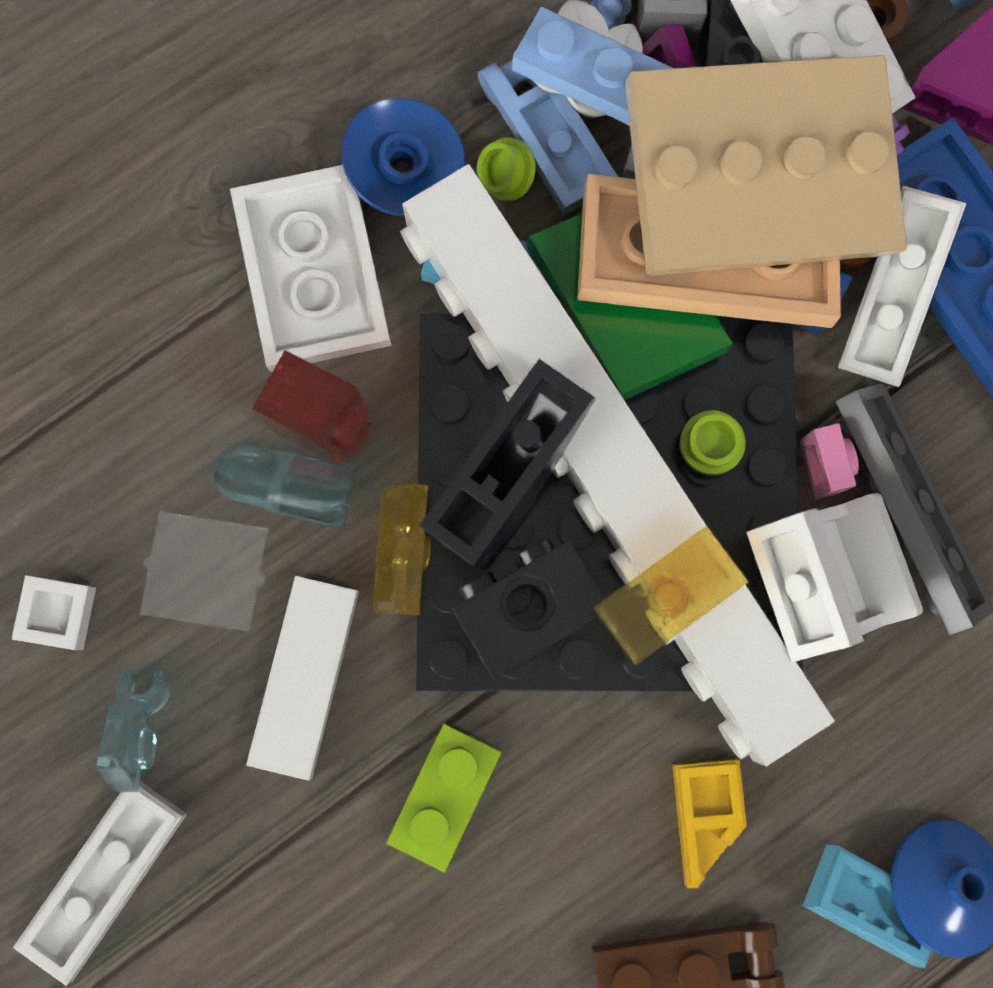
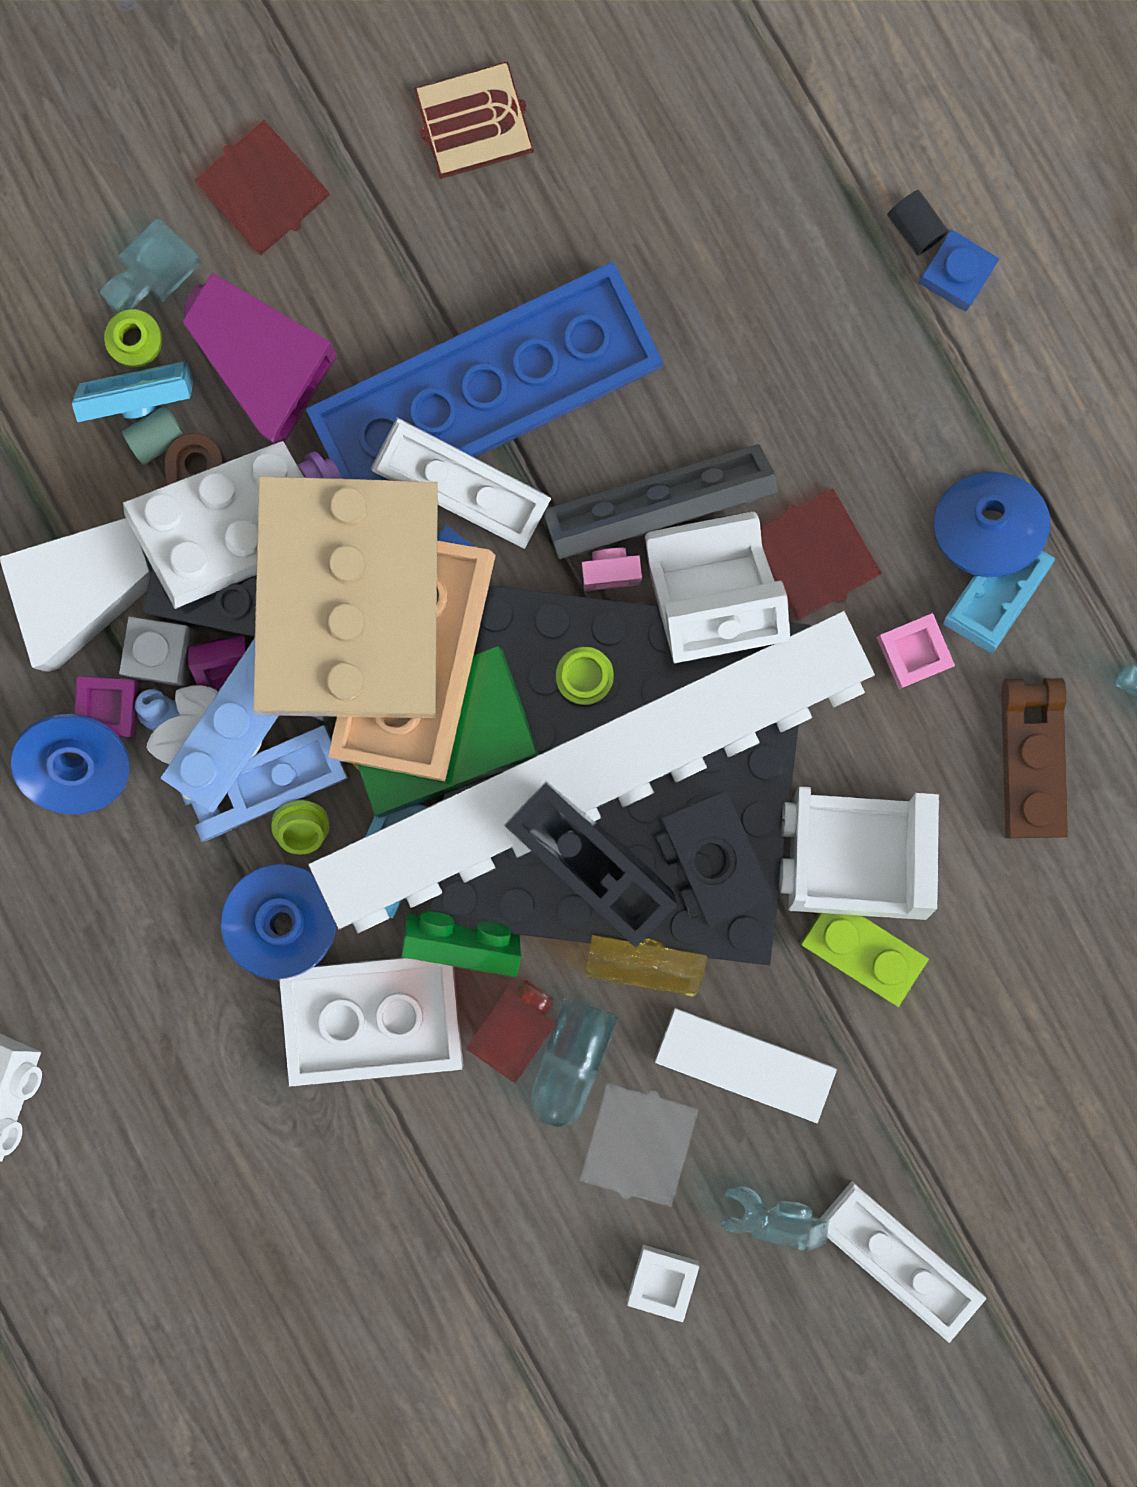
camera: 80 degrees left, 5 degrees up
(401, 323) = (438, 940): none -> green plate
(552, 780) = (861, 855): none -> white panel
(670, 595) = (723, 738): clear yellow plate -> none
(707, 812) = (903, 721): yellow tile -> none
(791, 815) = (915, 651): none -> bright pink plate
(882, 691) = (817, 553): none -> clear red piece

